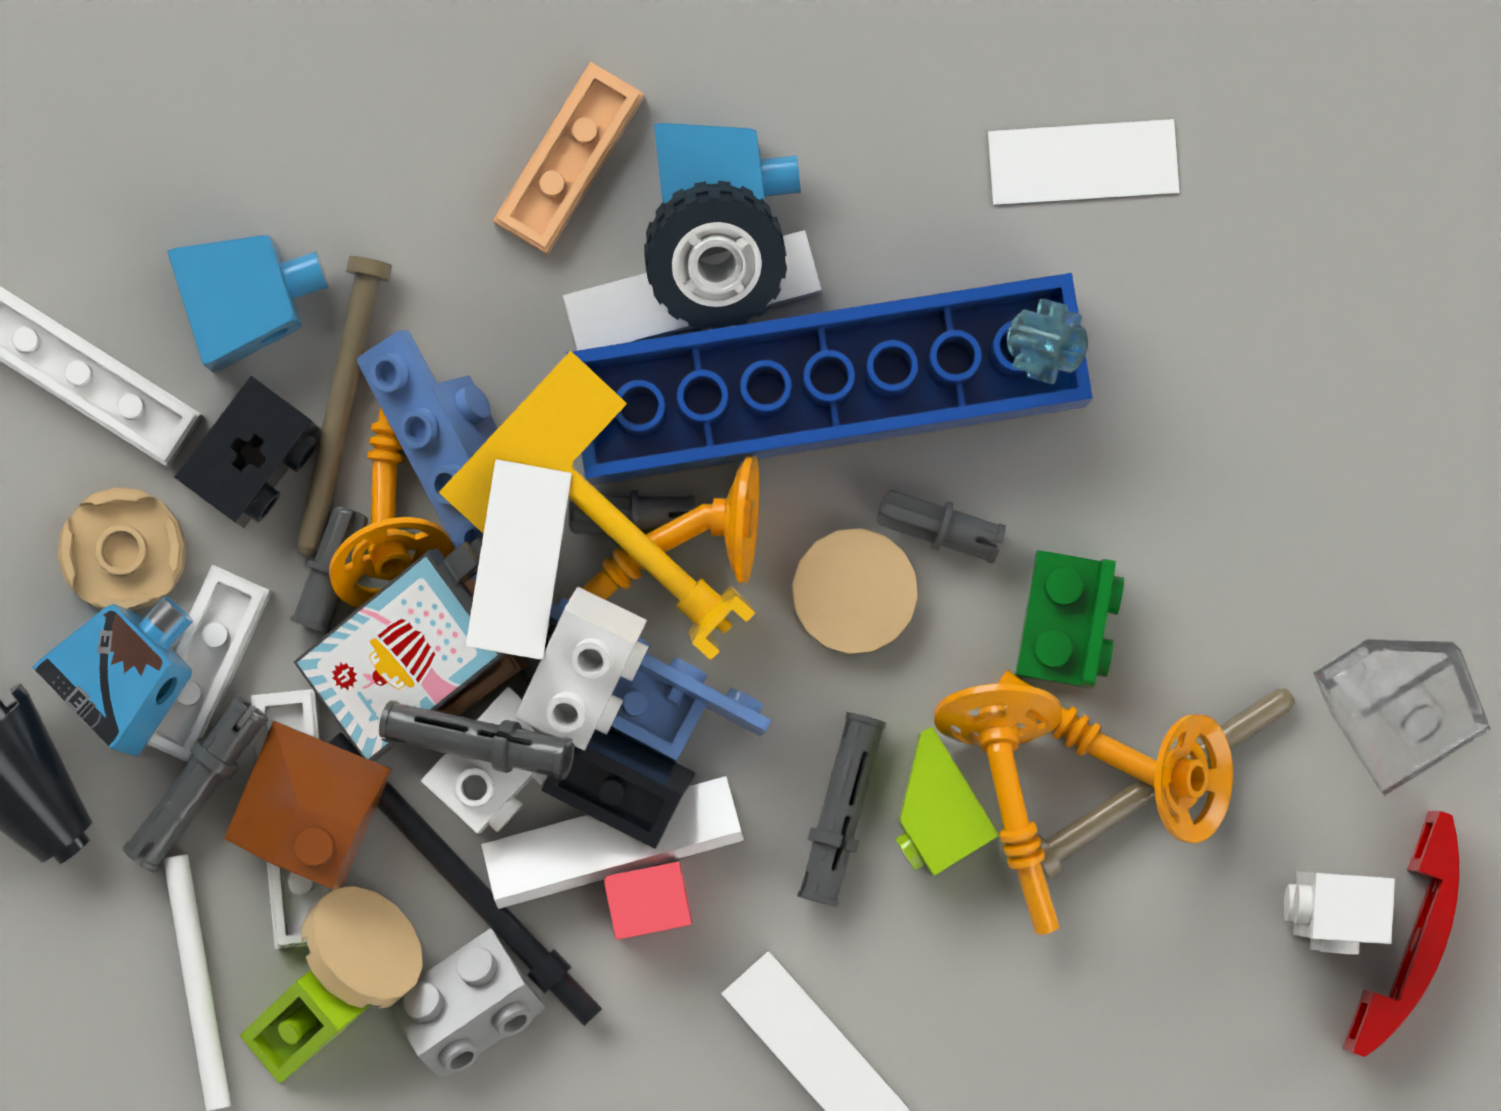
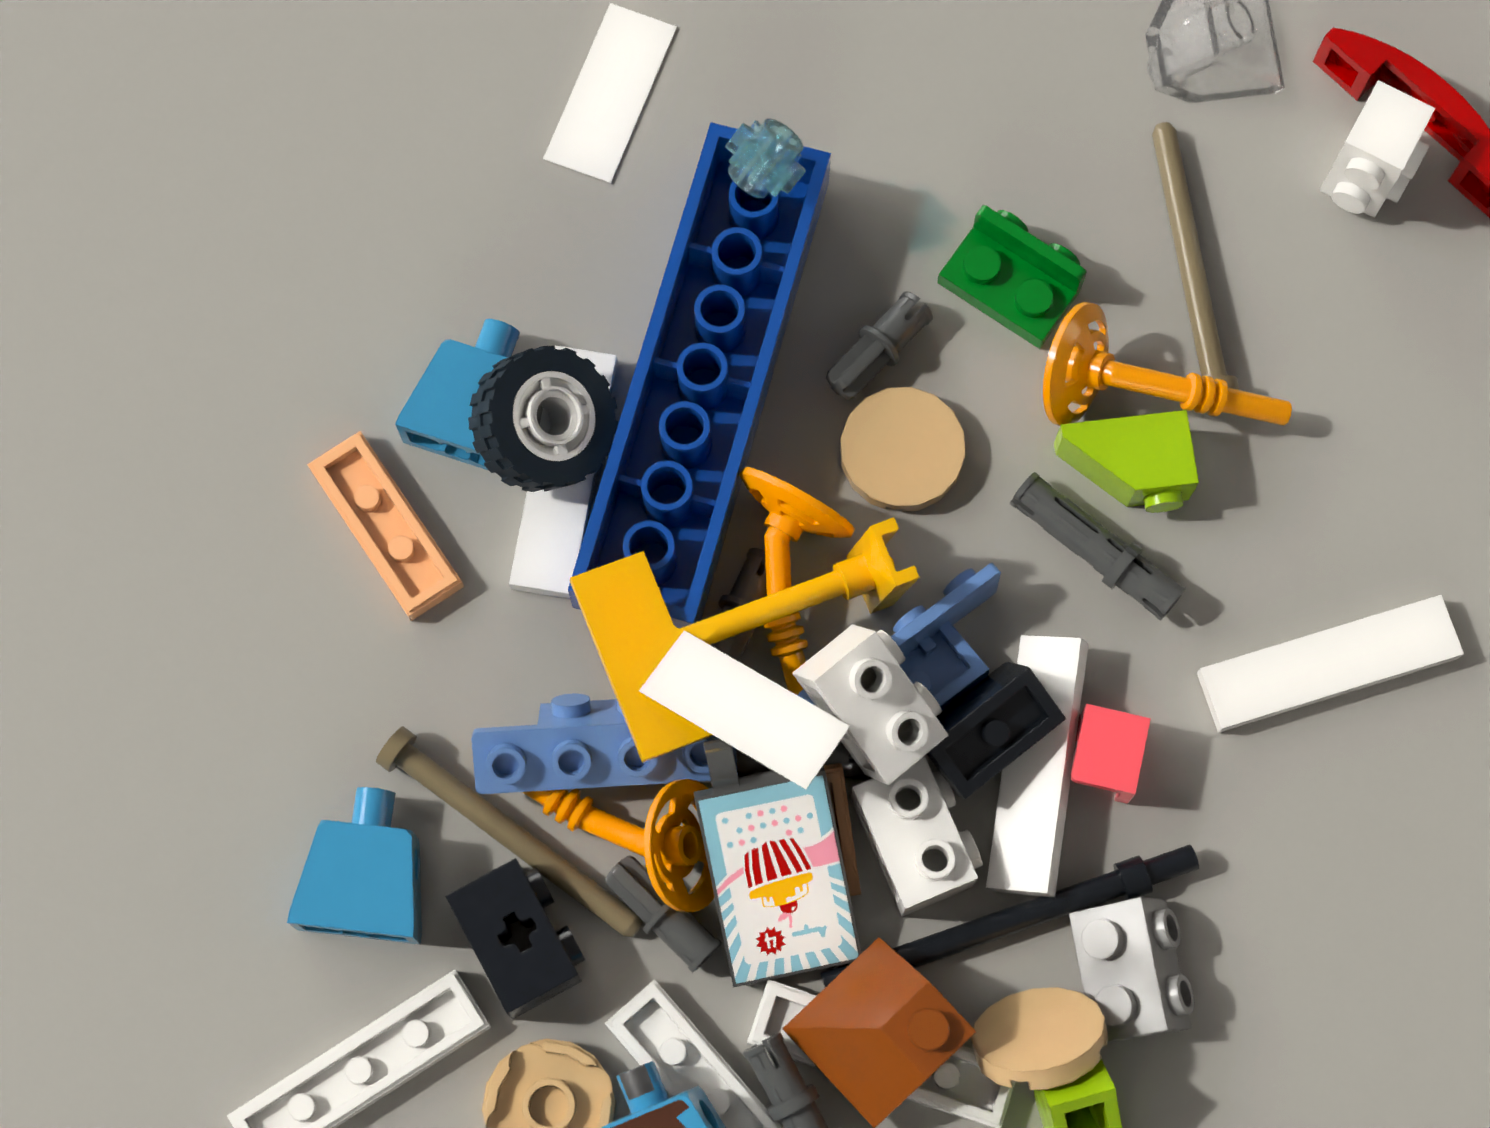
camera: 65 degrees left, 10 degrees down
(501, 745) = (892, 833): dark grey pin -> none
(1169, 774) = (1200, 233): light orange dish -> none

